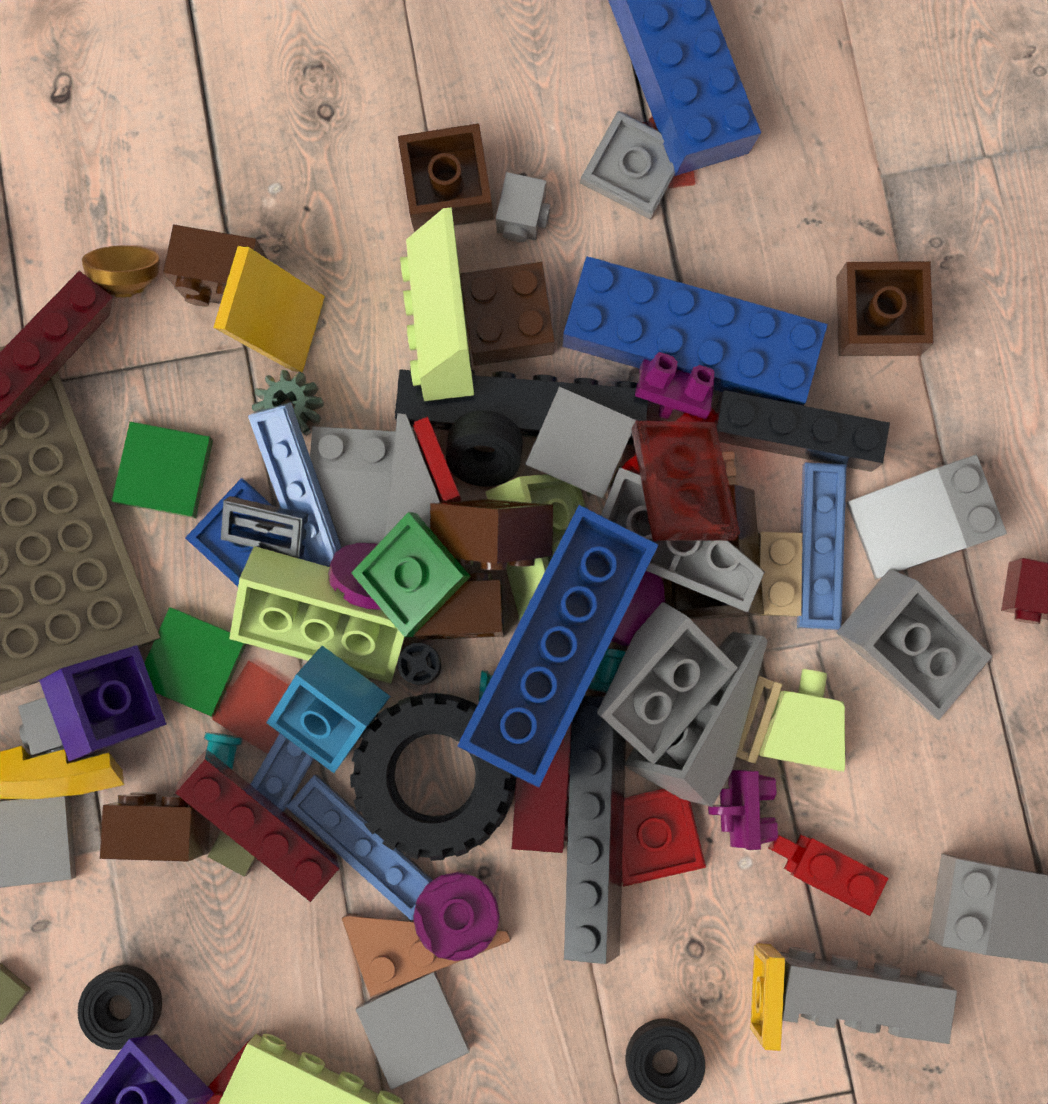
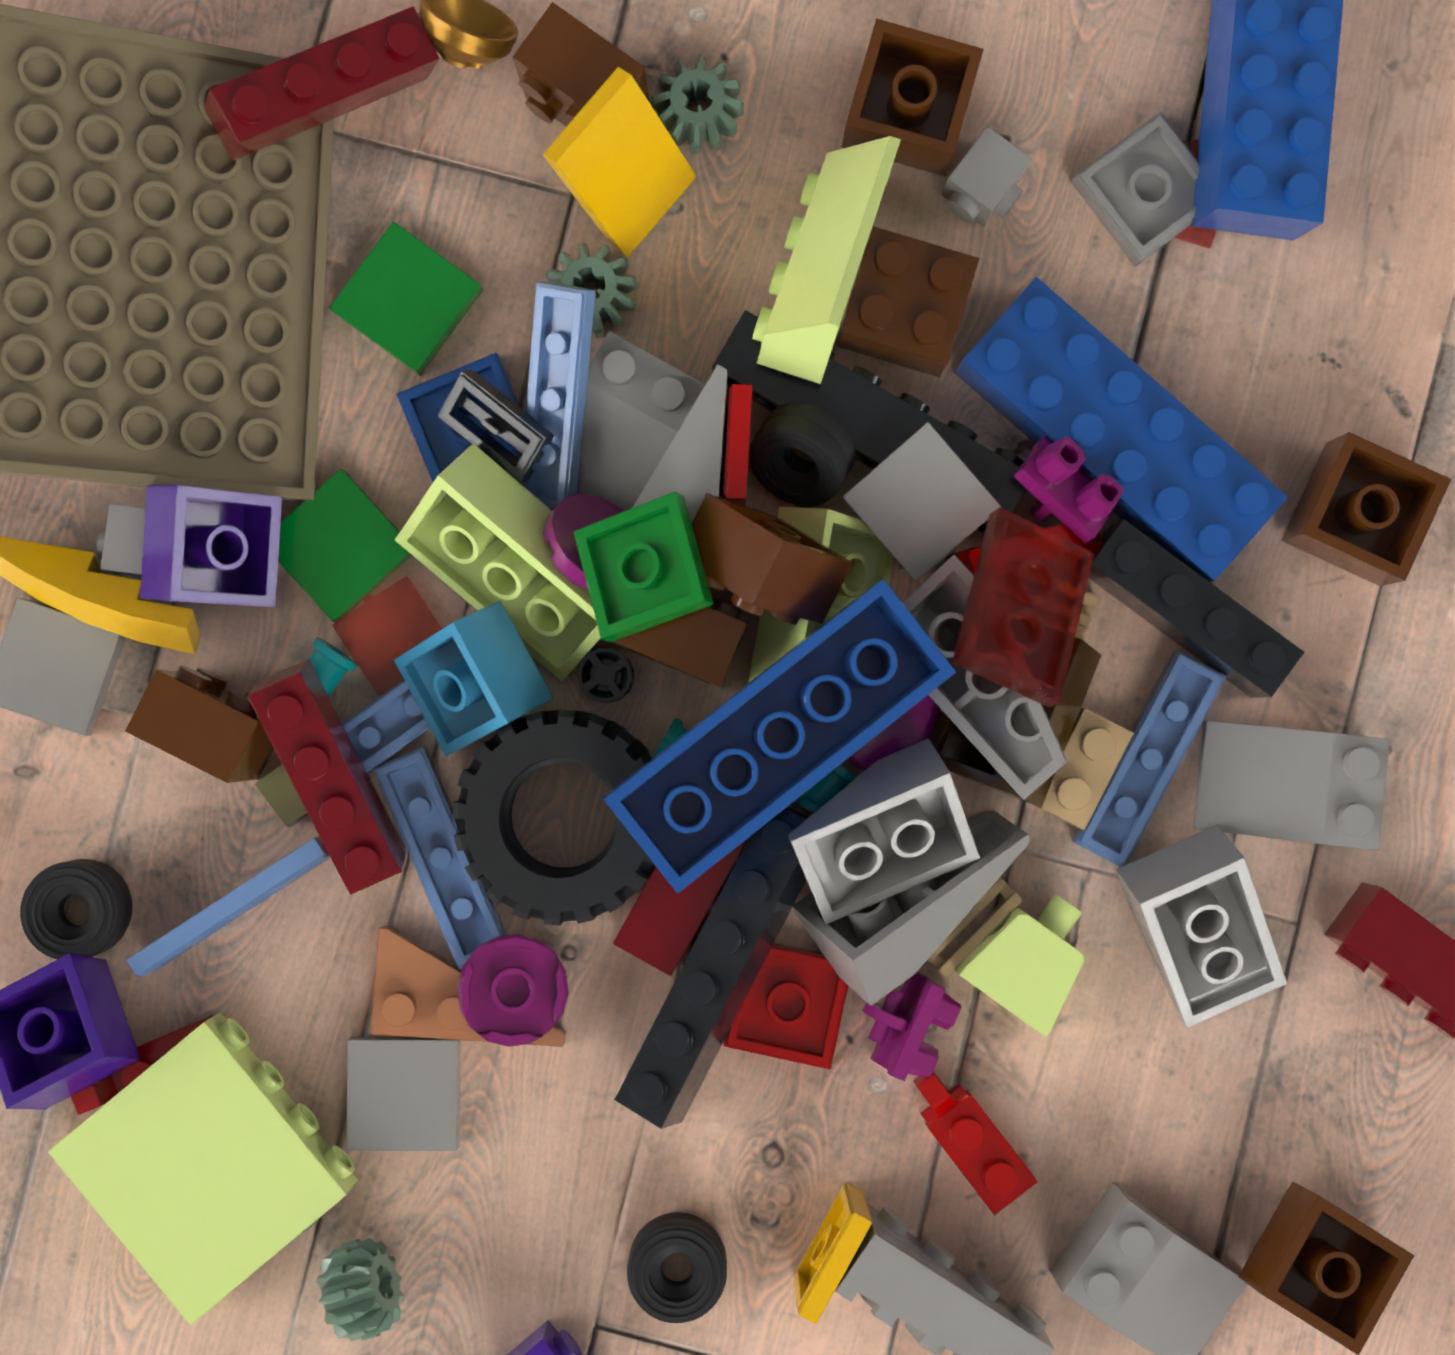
camera: 20 degrees right, 5 degrees up
(229, 953) = (229, 907): none -> medium blue tile
(303, 233) = (694, 86): none -> sand green gear

